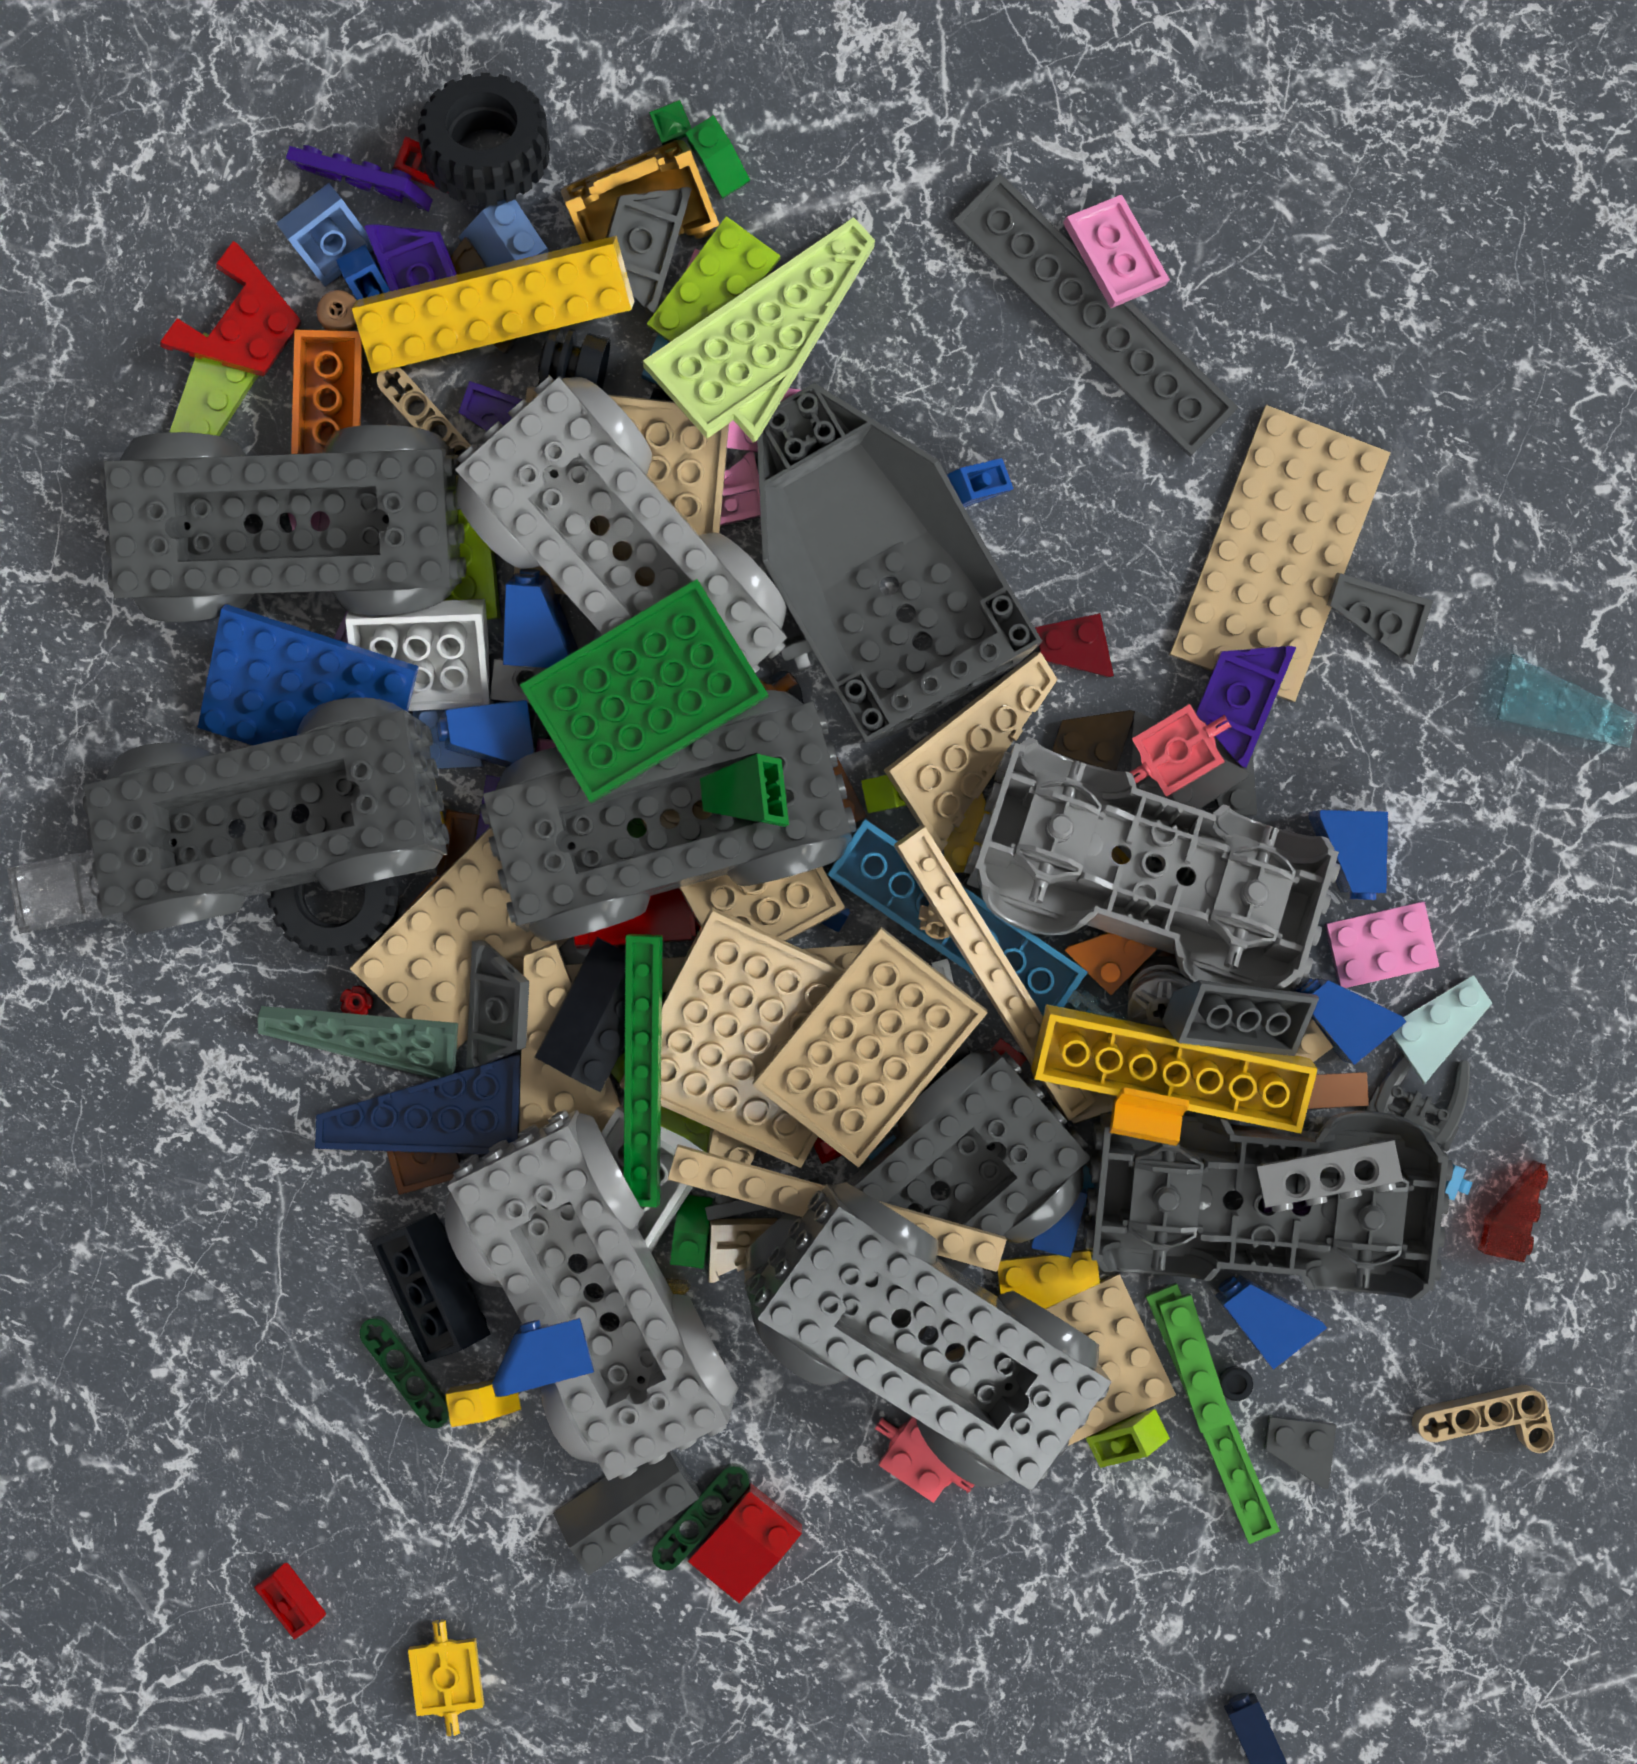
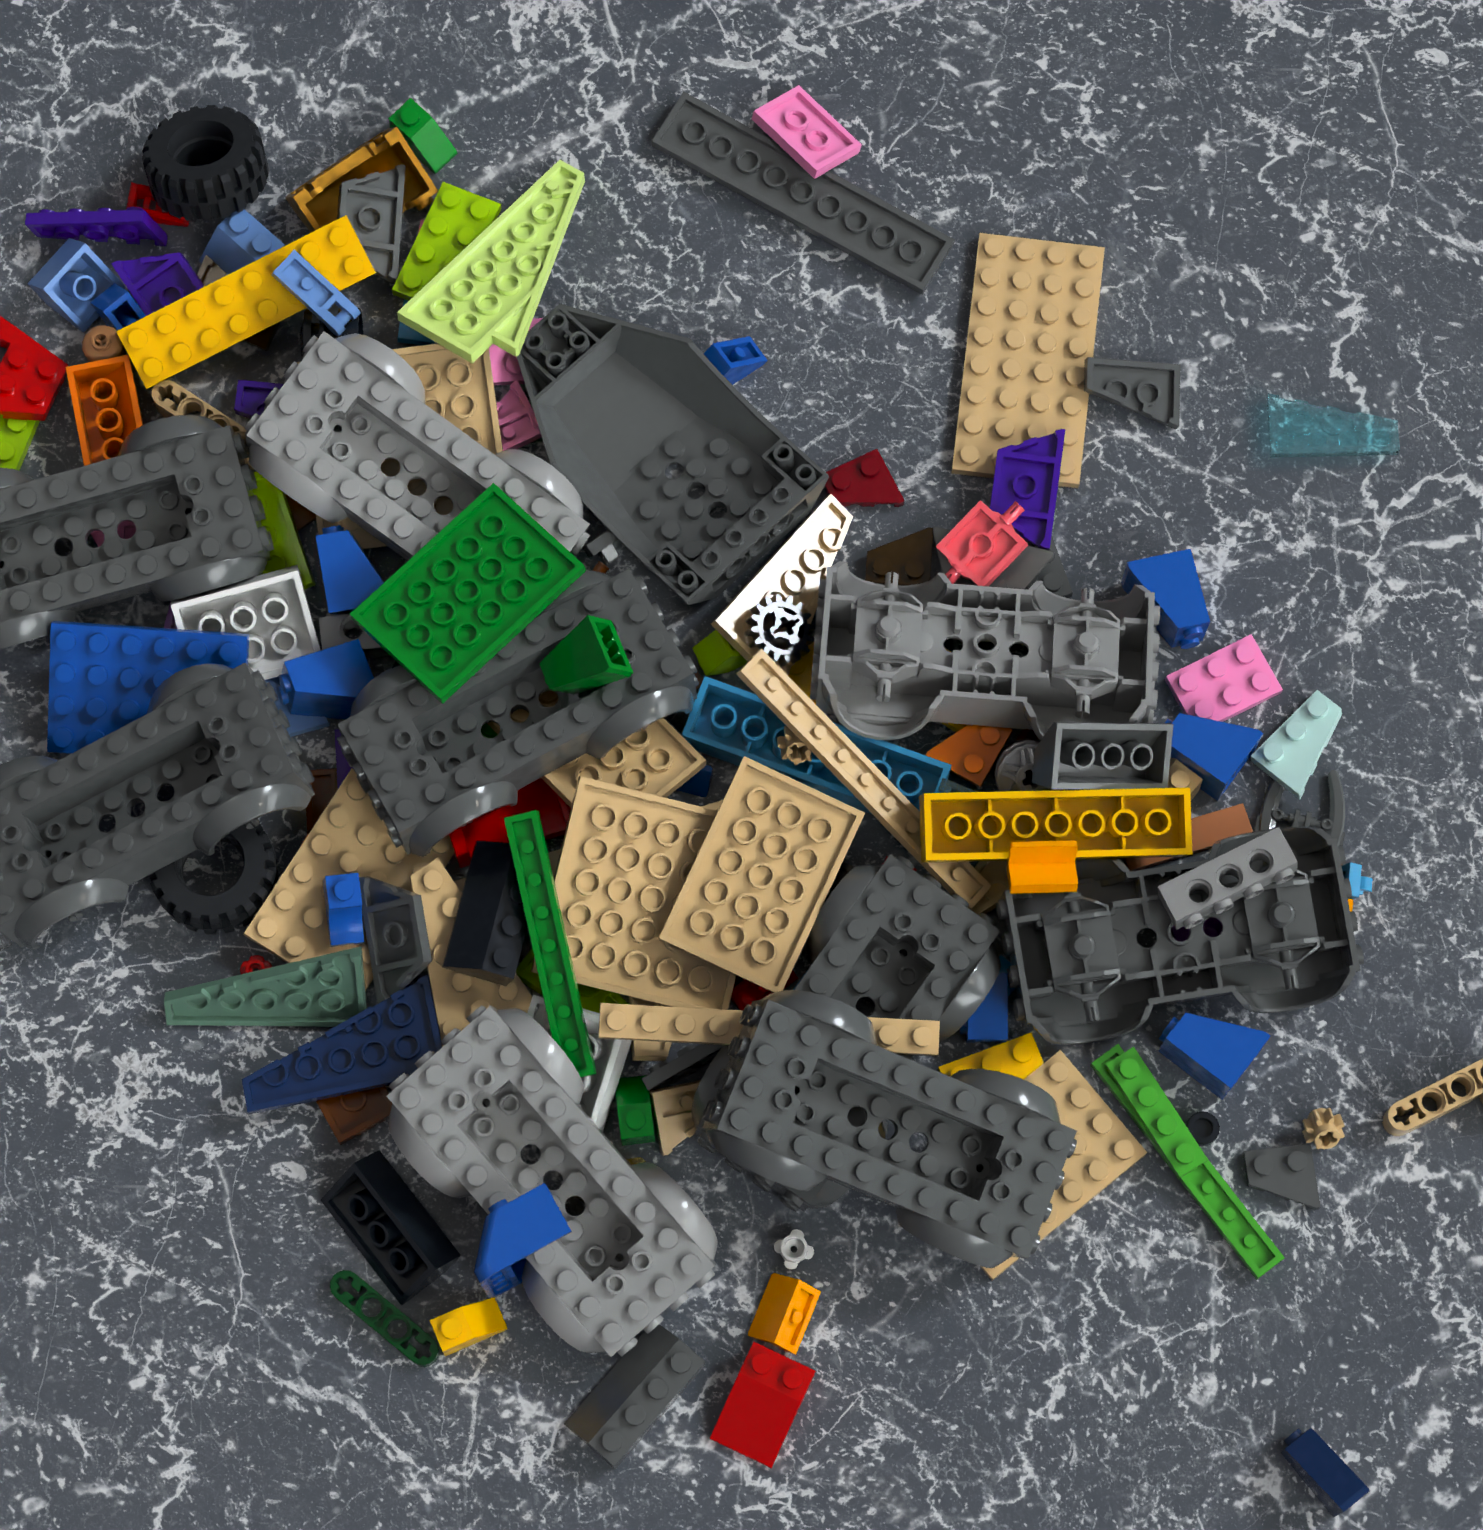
camera: 15 degrees left, 15 degrees down
(452, 970) = (343, 909): none -> blue arch
(562, 320) = (315, 292): none -> medium blue plate
(670, 122) = (371, 118): green tile -> none
(697, 1513) = (715, 1391): dark green beam -> none
(786, 1462) = (784, 1312): none -> light orange panel
(807, 1411) = (784, 1248): none -> white plate
(915, 1462) = (917, 1274): coral plate -> none
(941, 785) = (775, 614): none -> black gear
(1128, 1439) = (1111, 1205): lime slope -> none
(1353, 1416) = (1323, 1128): none -> tan gear
(1510, 1222) = (1419, 912): clear red slope -> none

